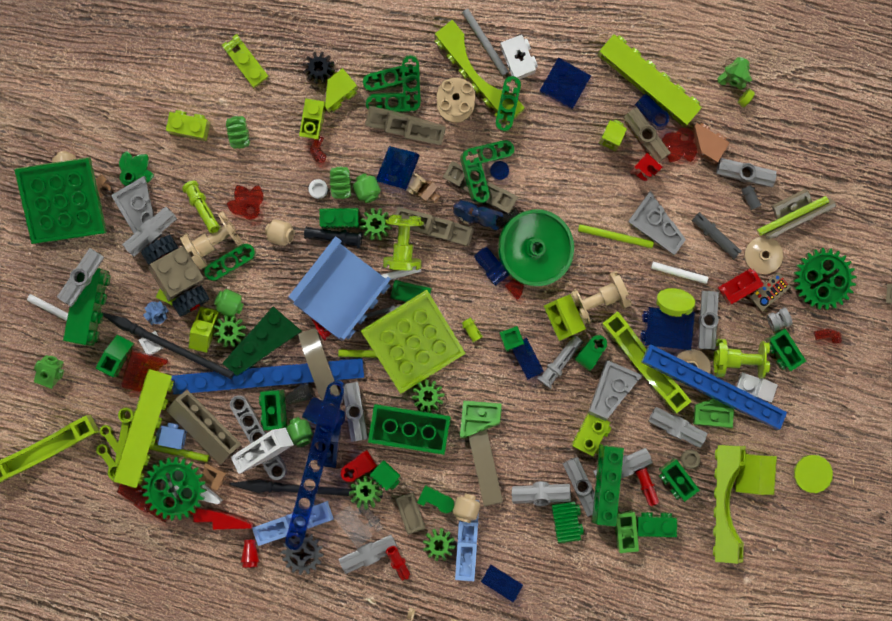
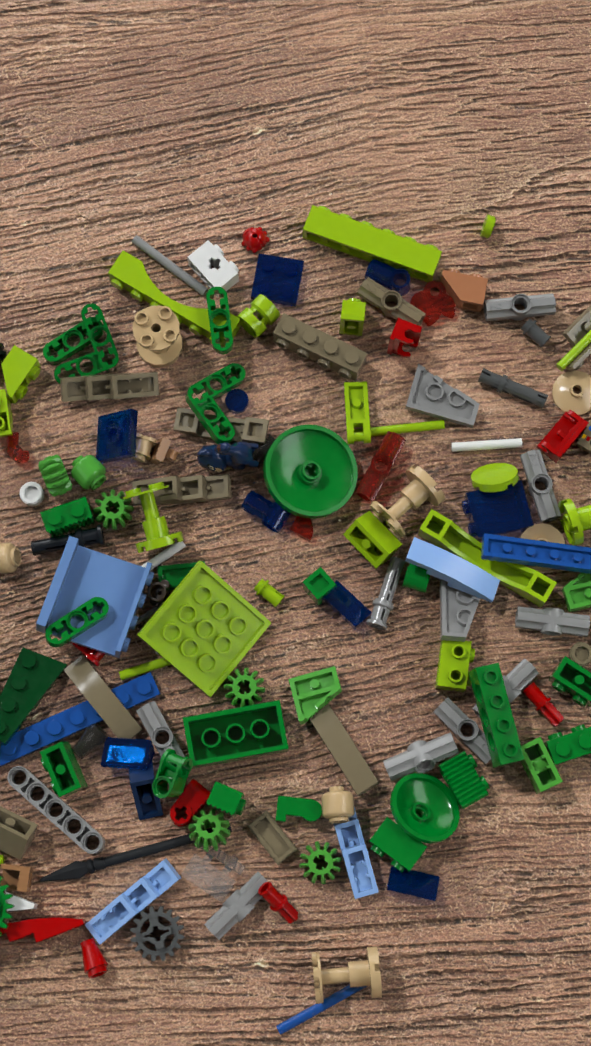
camera: 20 degrees left, 10 degrees down
(262, 450) = (65, 820): white slope -> none
(300, 432) = (104, 786): bright green head -> none
(310, 473) = (132, 852): clear blue beam -> none
(332, 295) = (95, 618): none -> green beam
(353, 441) = (172, 771): none -> green piece
(384, 301) = (153, 591): none -> dark brown plate
(500, 553) = (396, 845): none -> green brick
(538, 532) = (431, 801): none -> green dish
(545, 105) = (264, 310): none -> lime wheel
(556, 47) = (254, 244): none -> red animal
(581, 154) = (319, 347): none -> dark tan brick
(589, 212) = (357, 411): none -> lime plate
(599, 253) = (387, 454): none -> clear red piece
(616, 363) = (453, 569): none -> light blue slope
(736, 74) = (467, 204): bright green rock -> none

